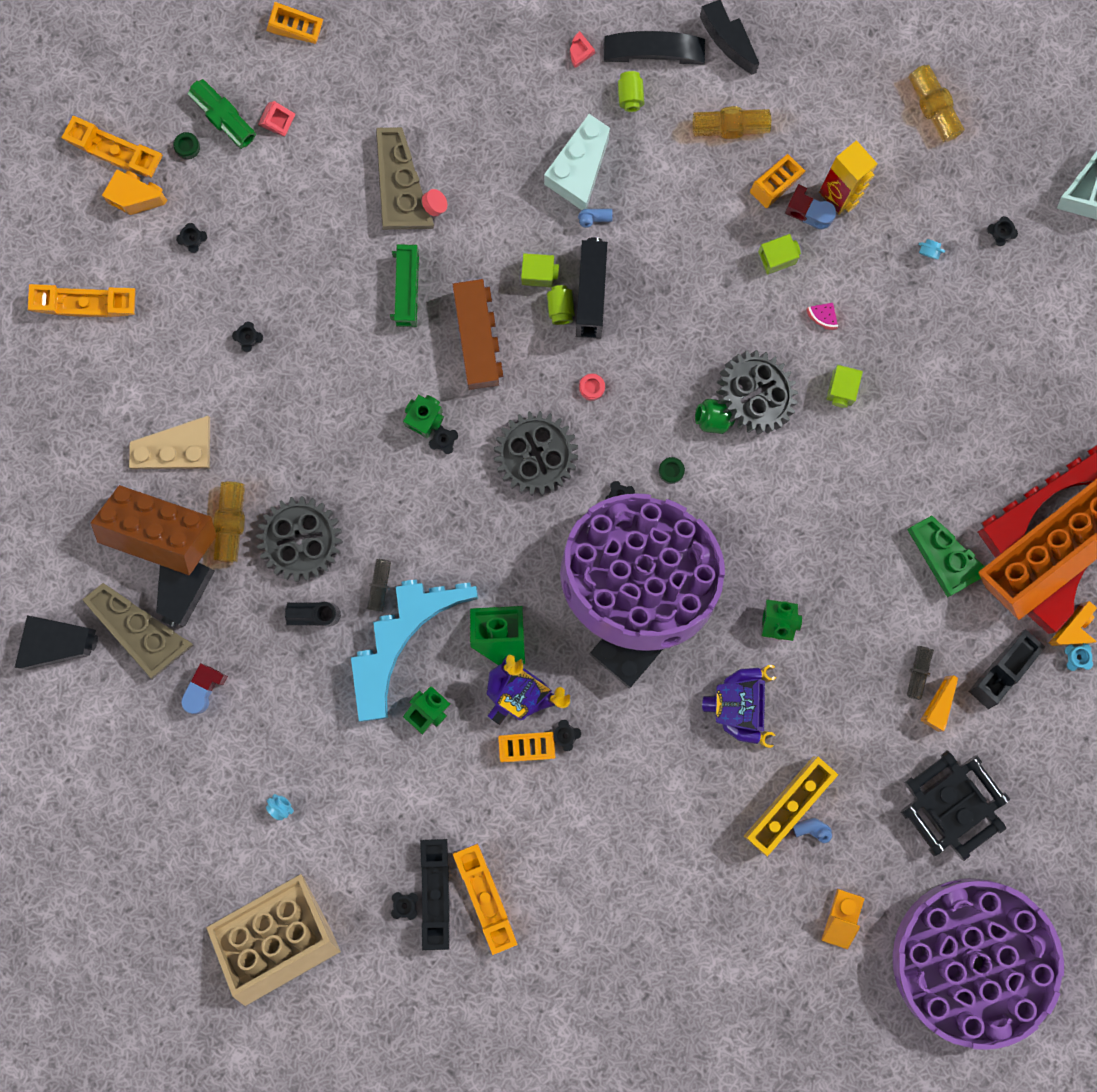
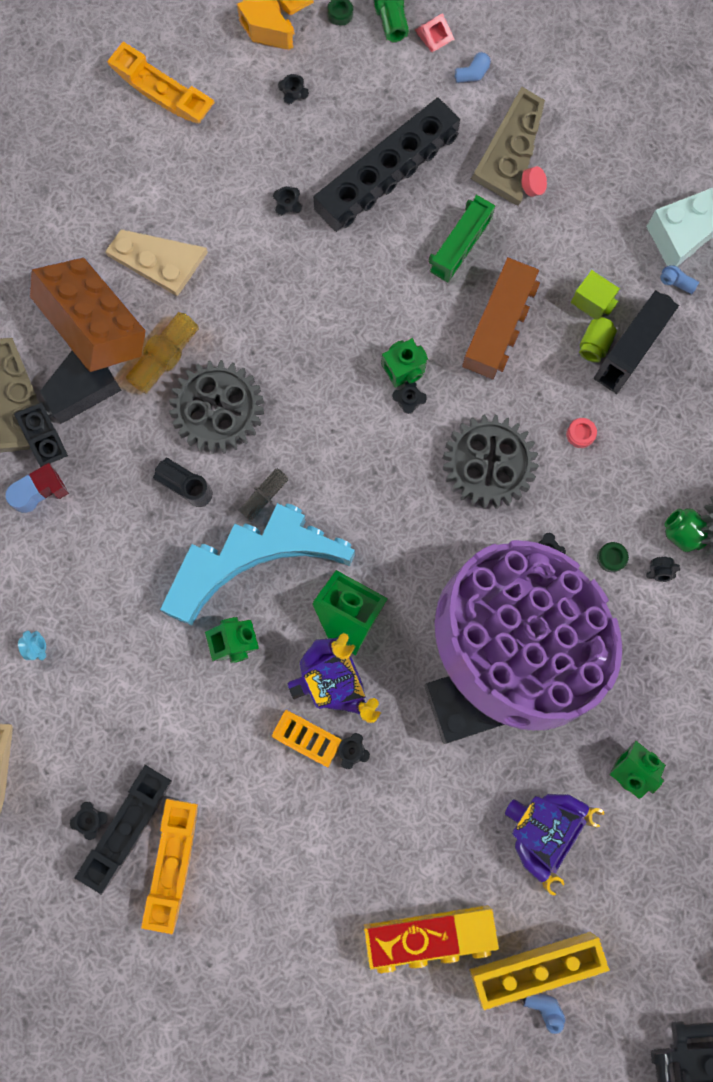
camera: 30 degrees right, 5 degrees down
(178, 645) = (41, 434): none -> black slope
(323, 196) = (434, 119): none -> black brick
(330, 132) = (475, 71): none -> medium blue arm
(703, 830) = (431, 938): none -> brick
(713, 457) = (663, 569): none -> black plate

